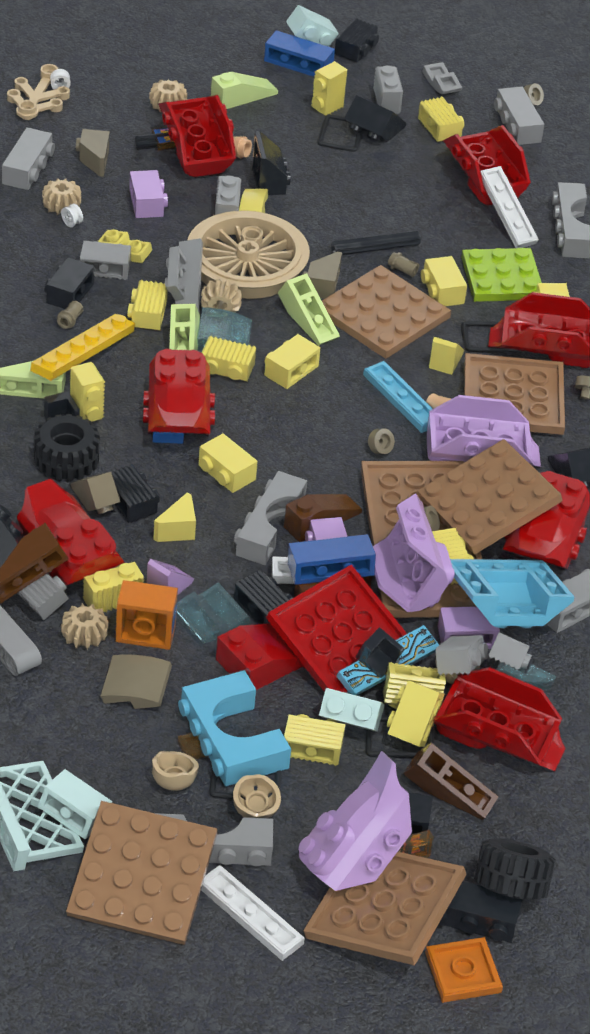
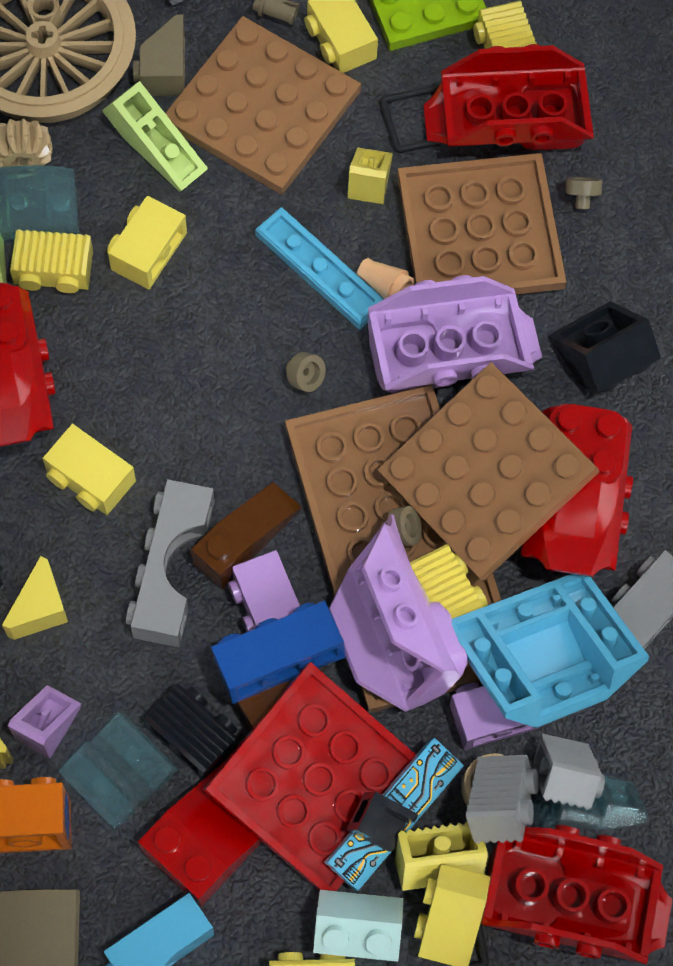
camera: 10 degrees left, 25 degrees up
(281, 570) = (203, 661): white plate -> none

